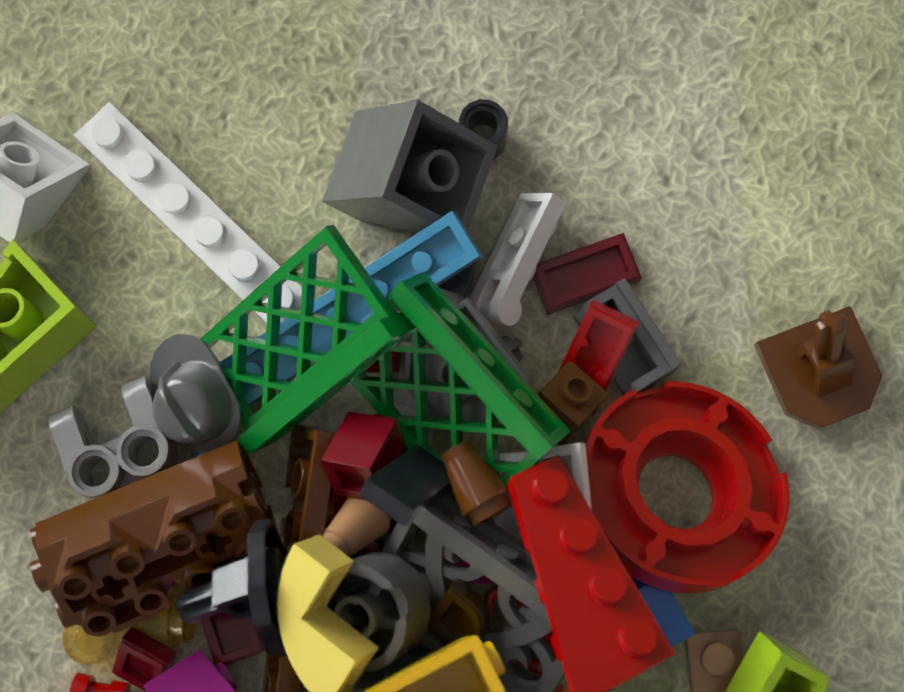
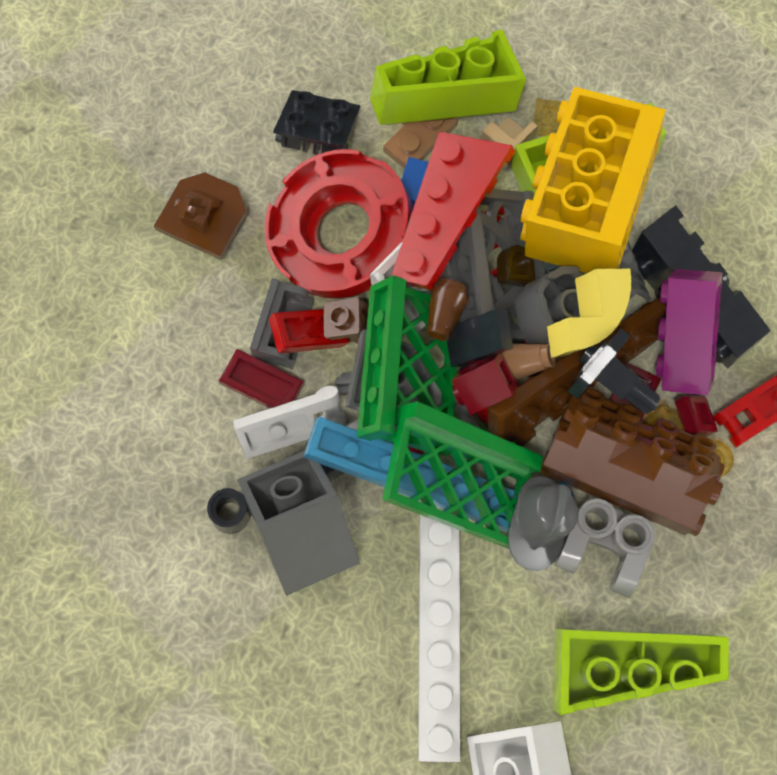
camera: 140 degrees left, 5 degrees down
(832, 584) = (315, 121): none -> black hinge

